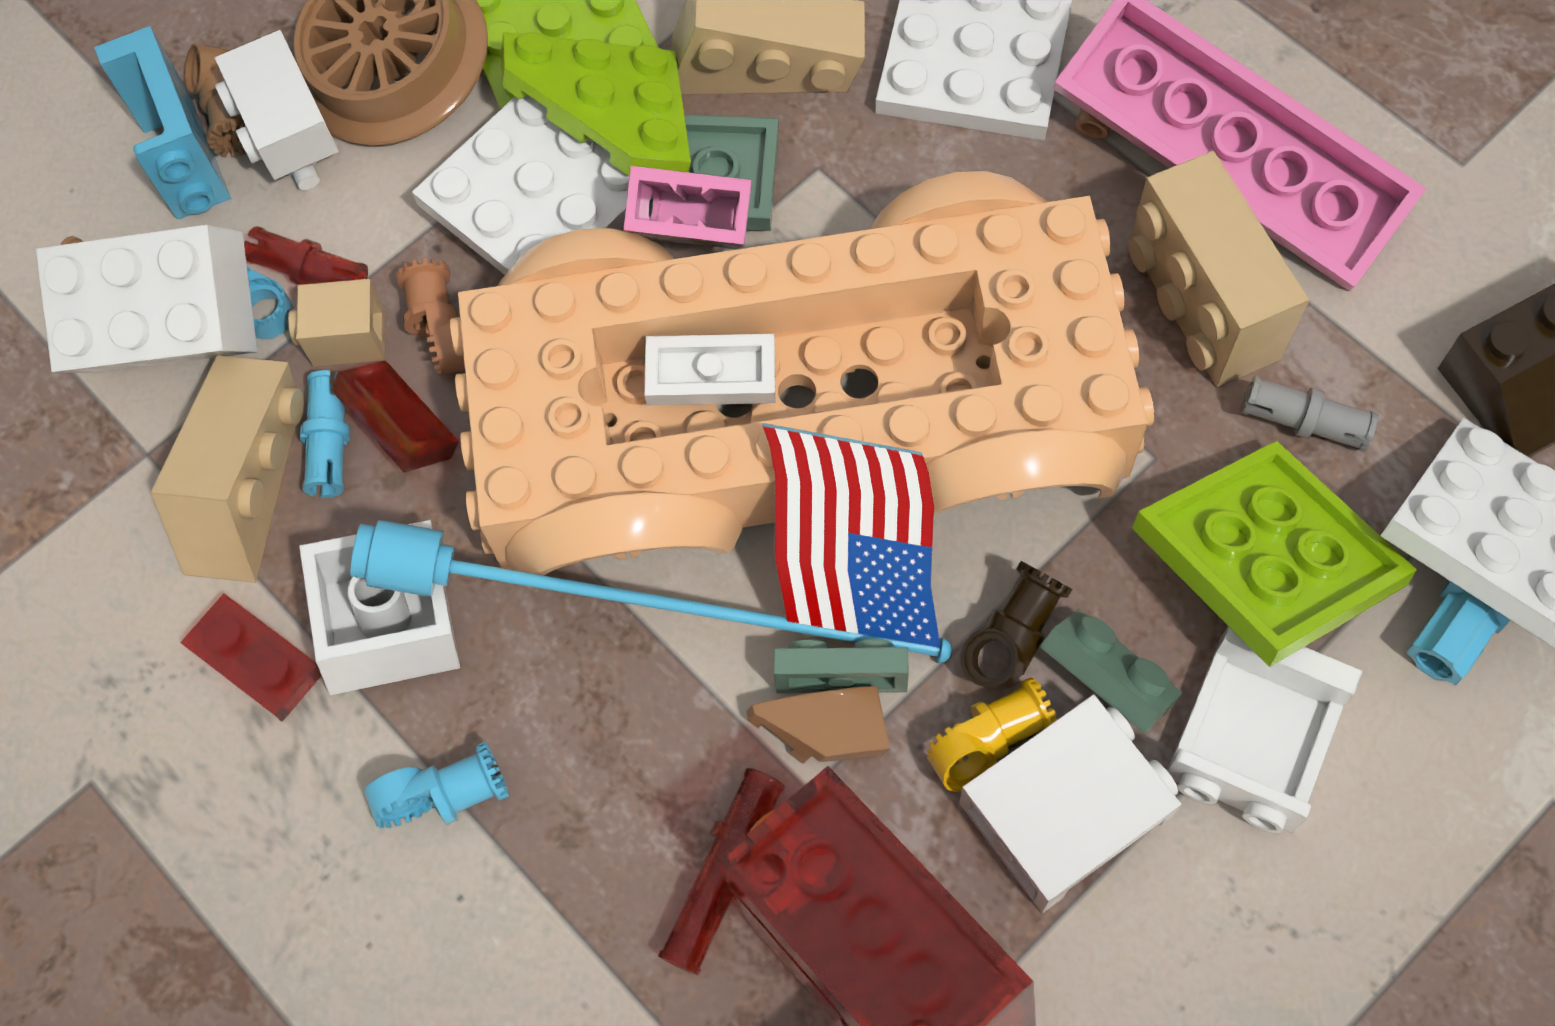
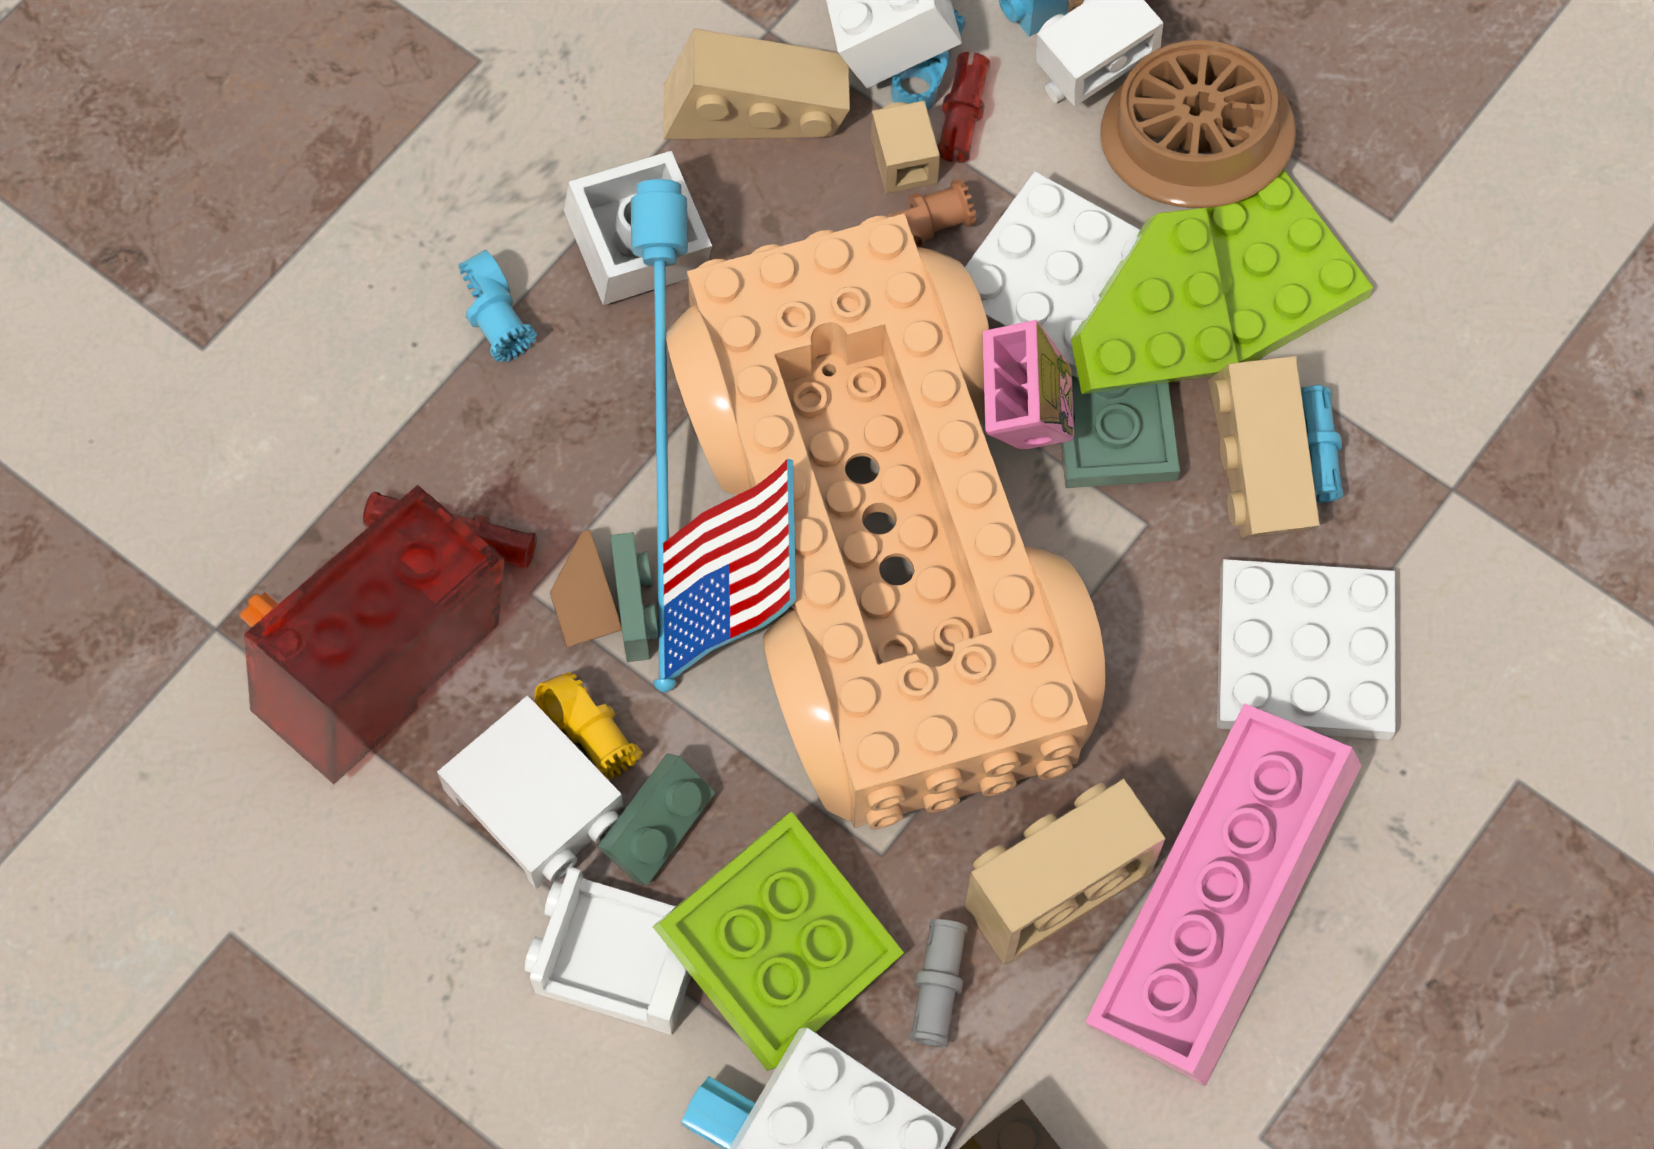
camera: 75 degrees right, 0 degrees up
(252, 657) = (595, 143): clear red plate -> none
(324, 437) = (800, 158): medium azure pin -> none
(394, 416) = (823, 200): clear red plate -> none
(710, 369) = (873, 434): white plate -> none
(1015, 625) = (687, 734): dark brown connector -> none

